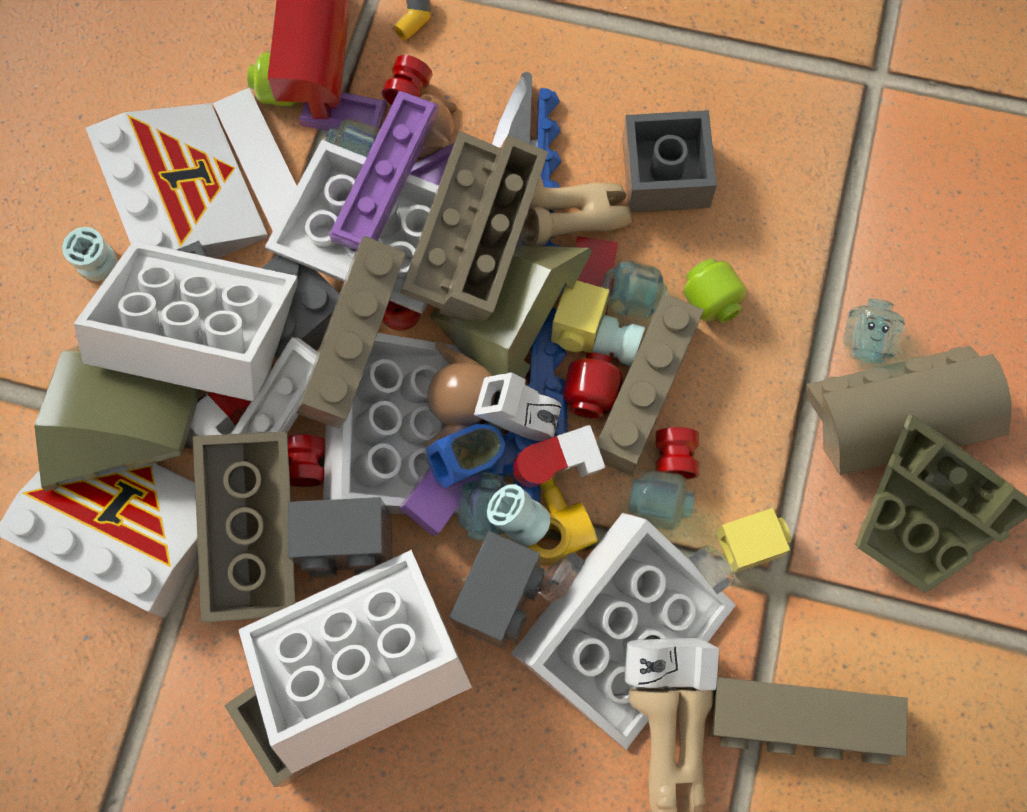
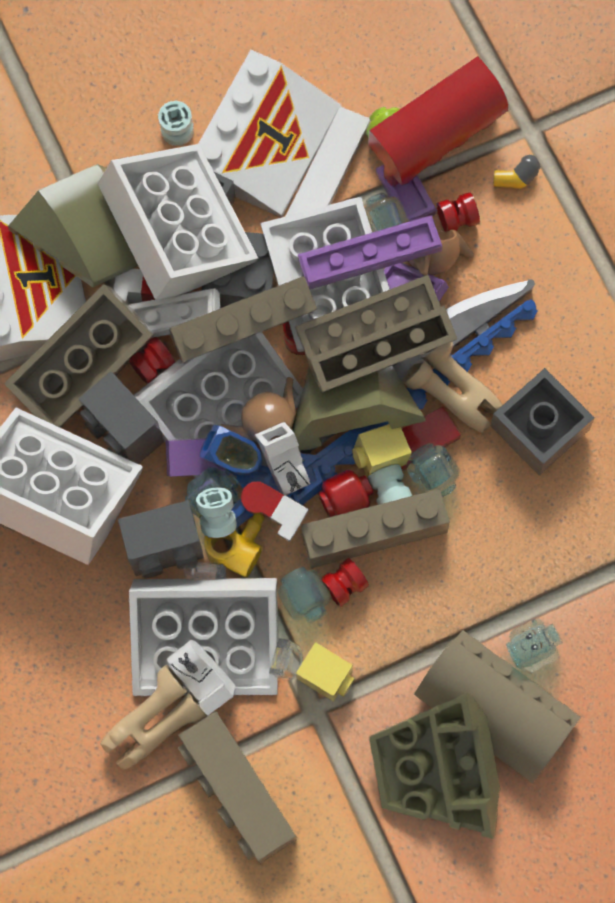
camera: 50 degrees right, 0 degrees up
(716, 290) = (476, 522): lime head -> none

